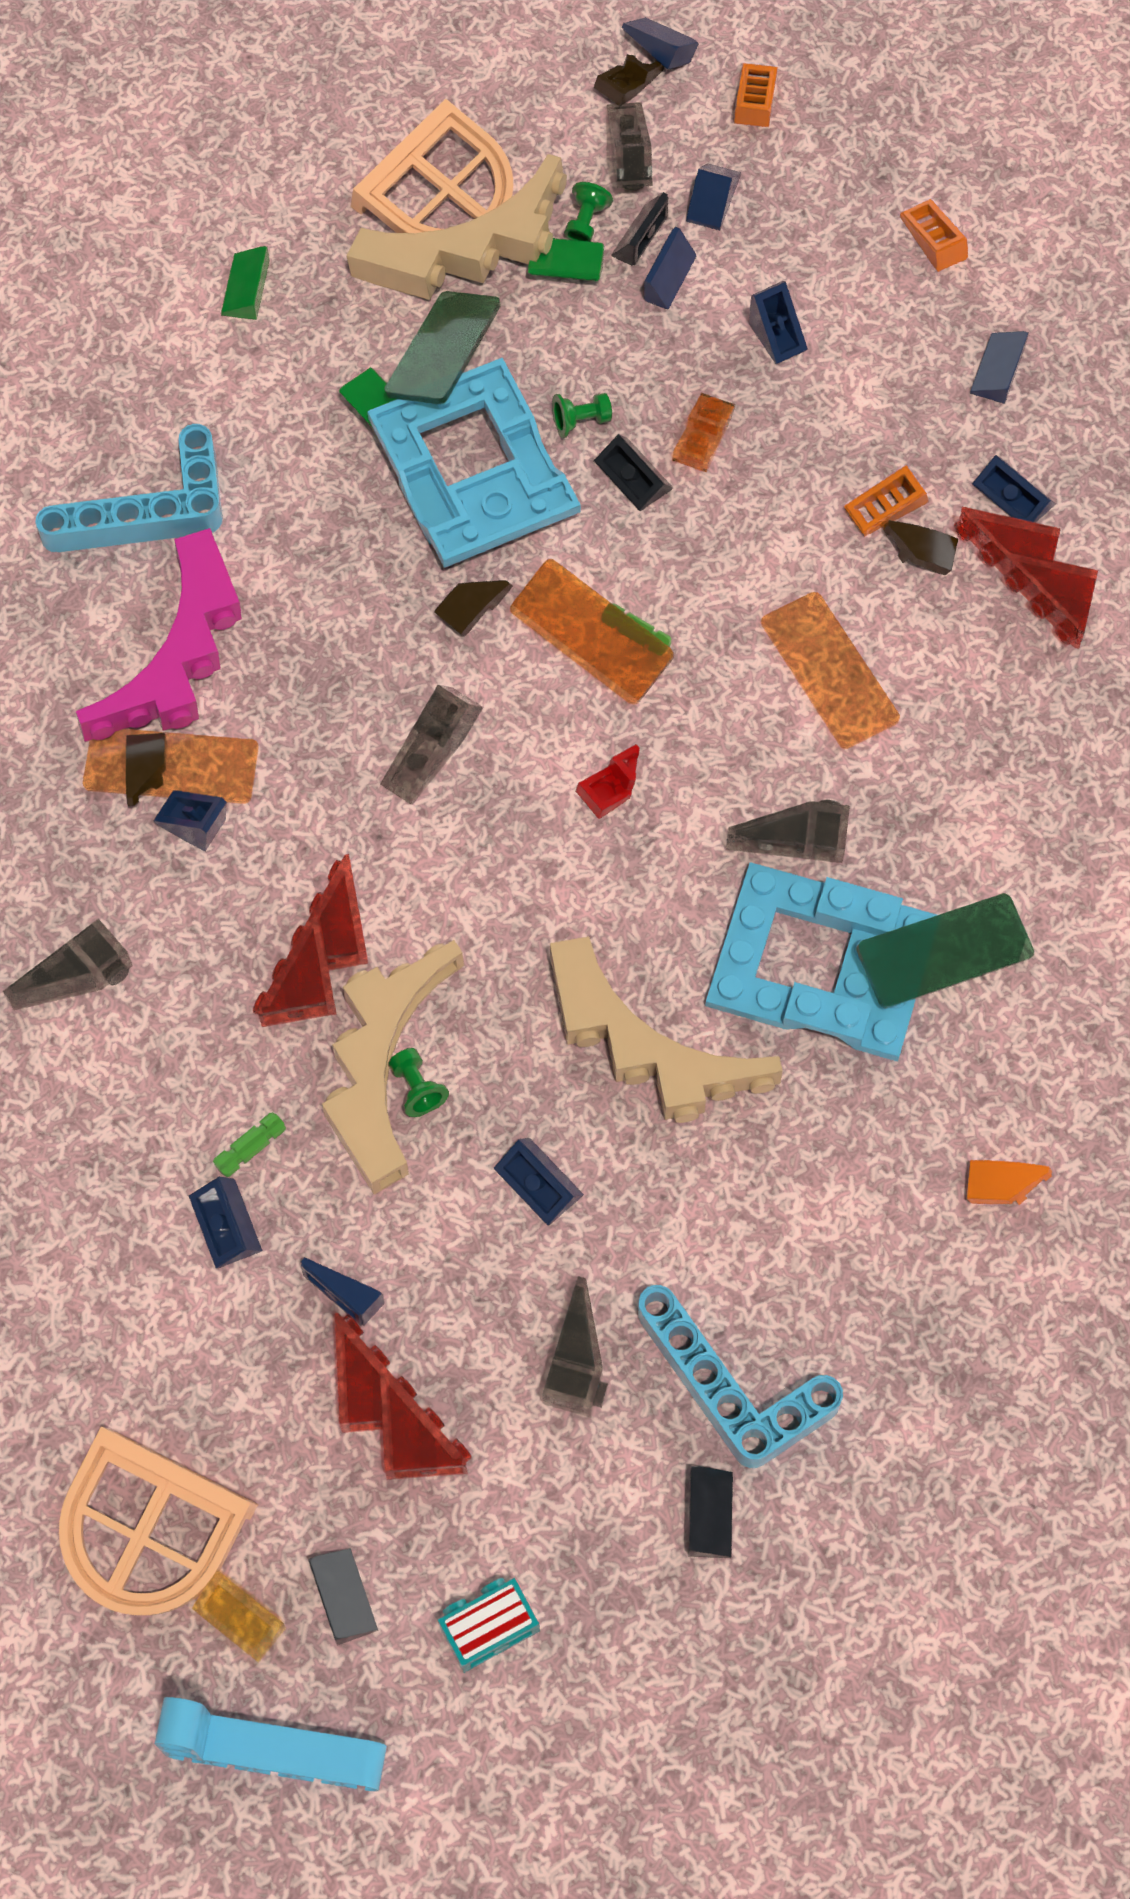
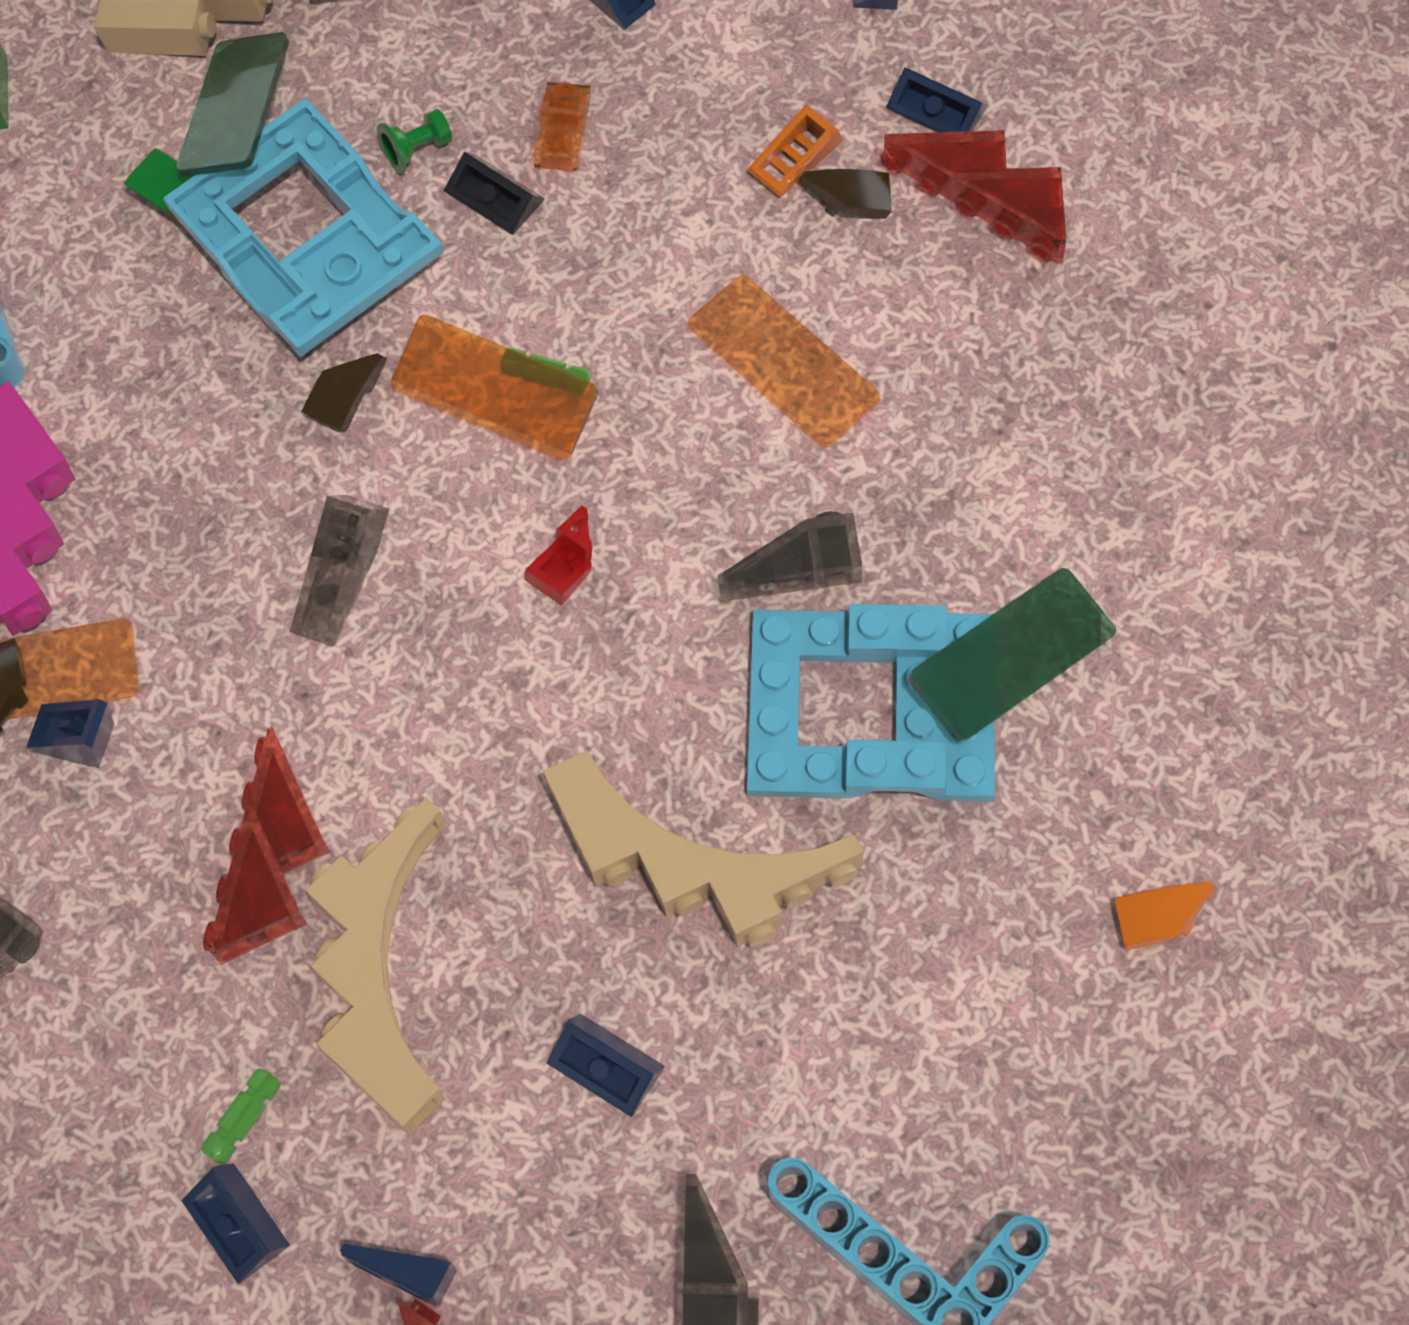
camera: 10 degrees left, 0 degrees up
(424, 1095) = (438, 997): green piece -> none

